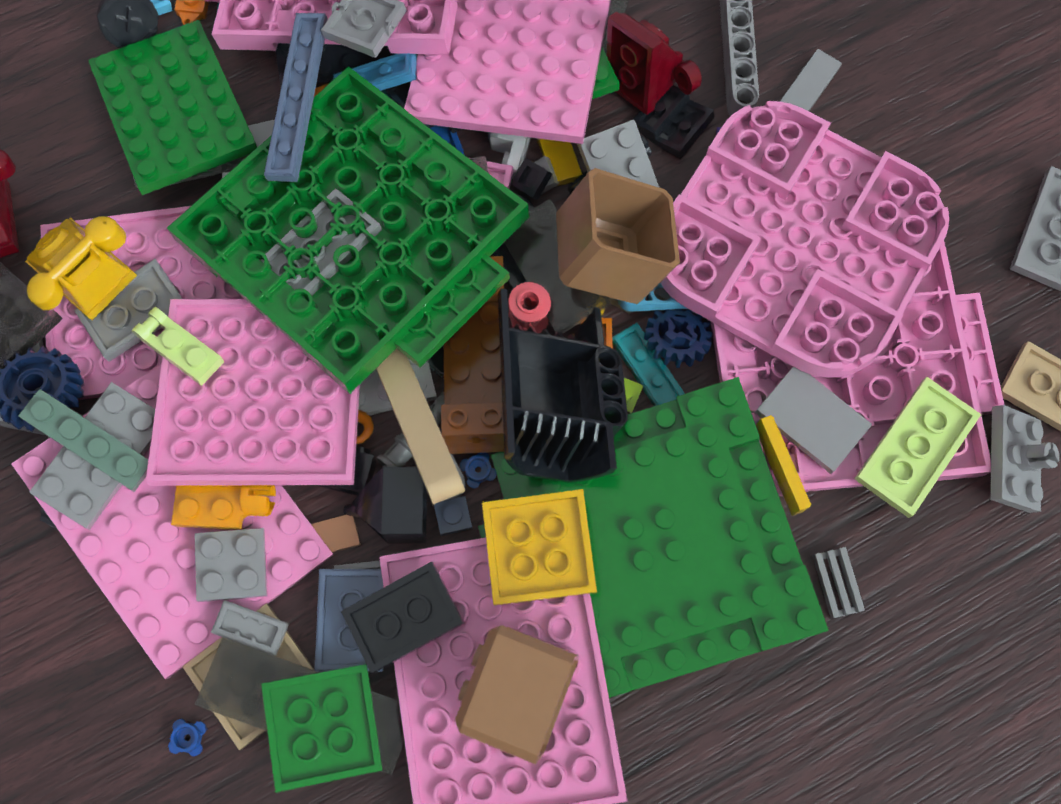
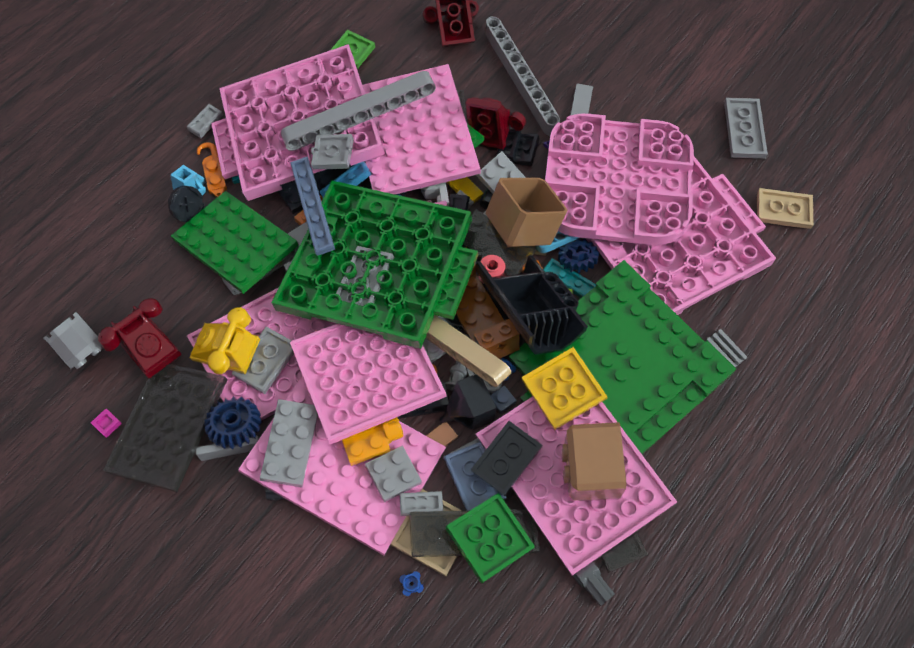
camera: 20 degrees left, 10 degrees down
(85, 440) = (281, 434): sand green plate -> none
(178, 346) = (309, 363): yellowish green plate -> none
(782, 466) = (670, 297): yellow tile -> none
(814, 419) = (672, 267): light grey tile -> none
(917, 447) = (732, 260): yellowish green plate -> none
(1018, 459) = (786, 247): light grey plate -> none

